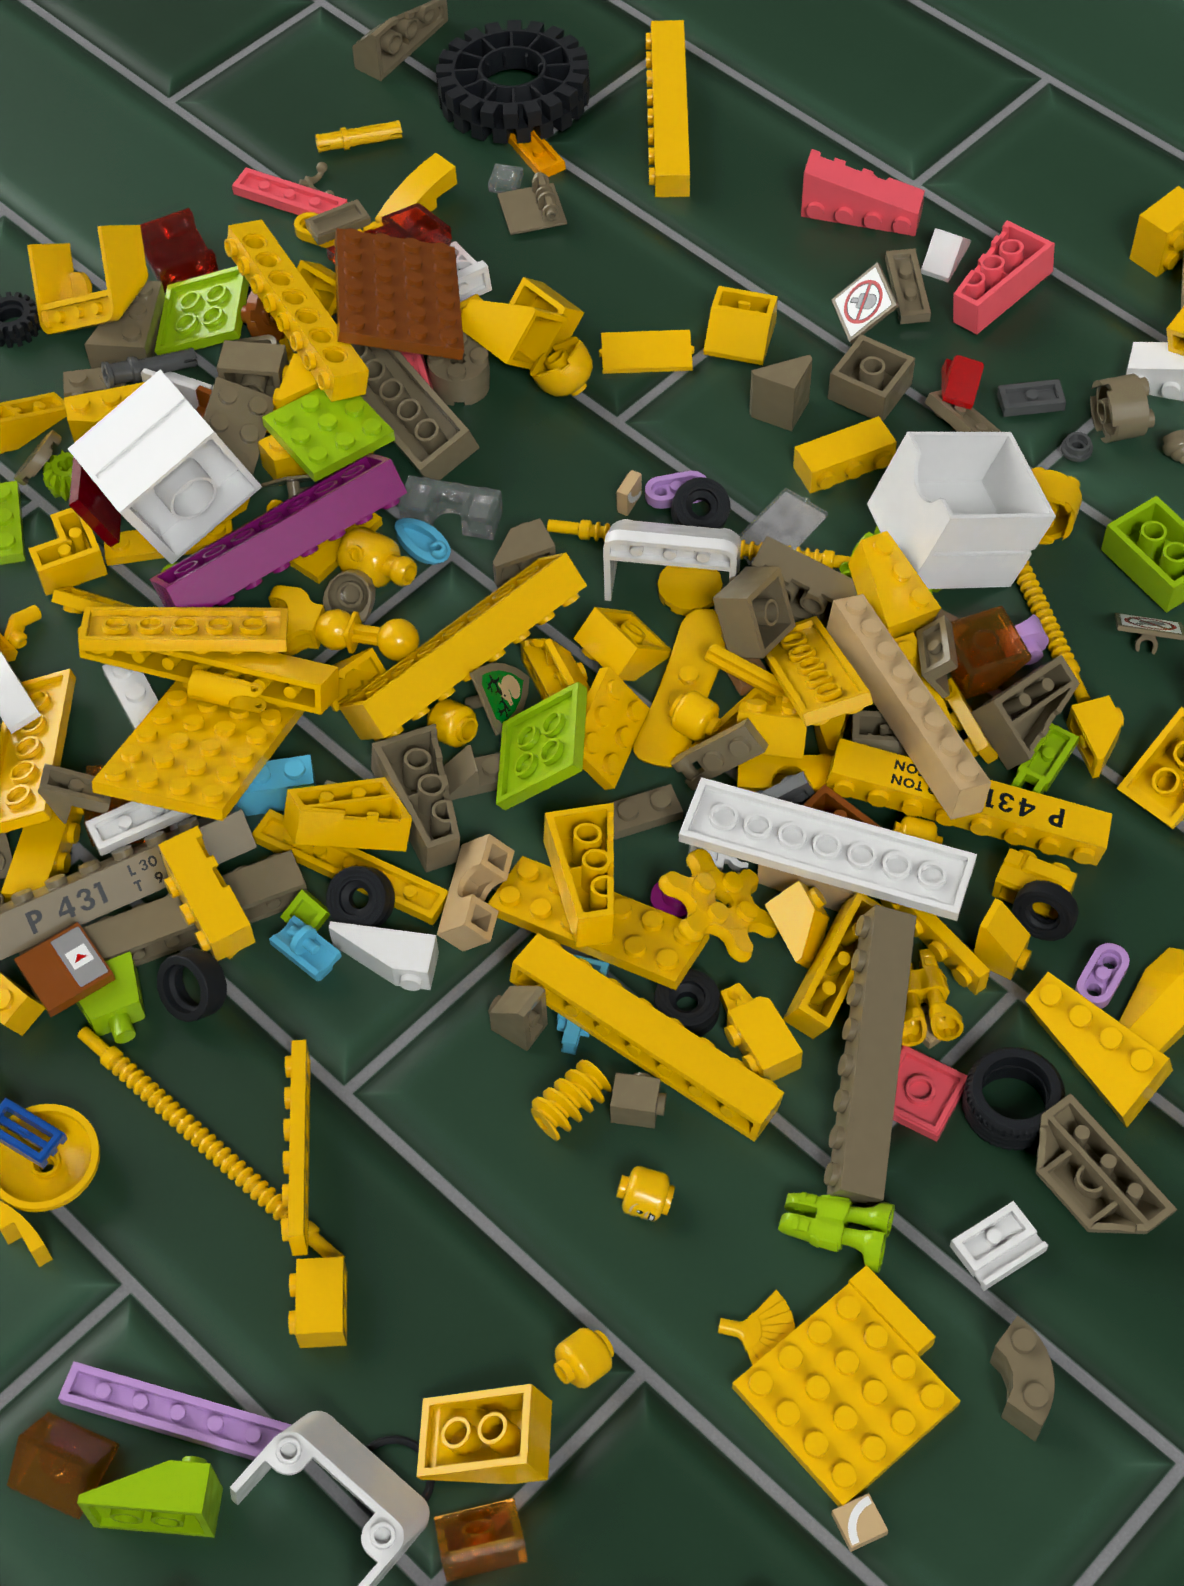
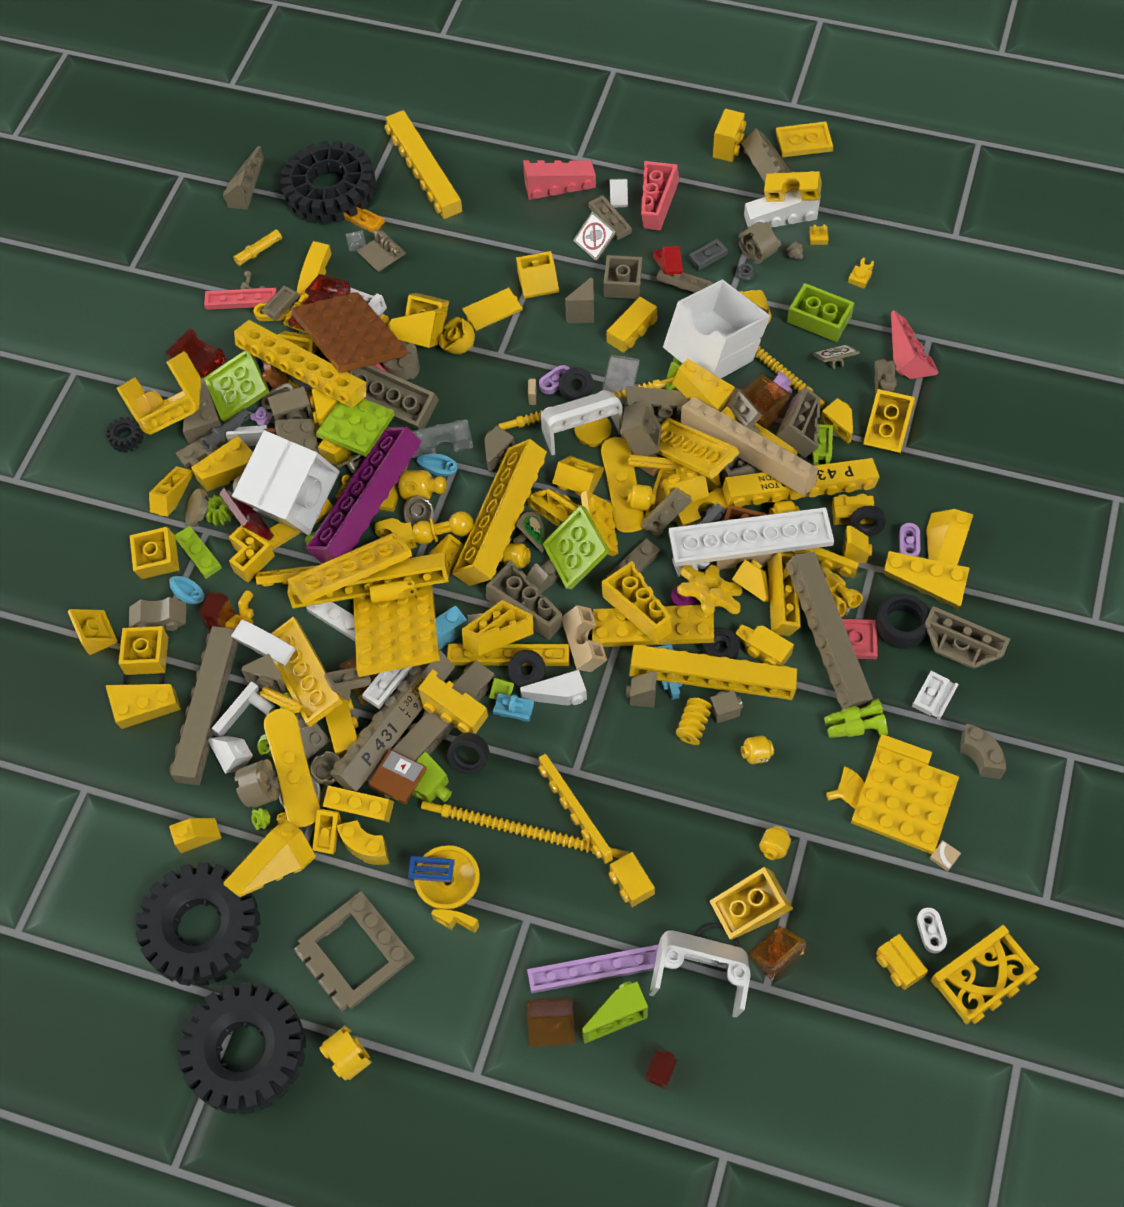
camera: 25 degrees left, 5 degrees up
(208, 370) = (264, 420): none -> lavender plate

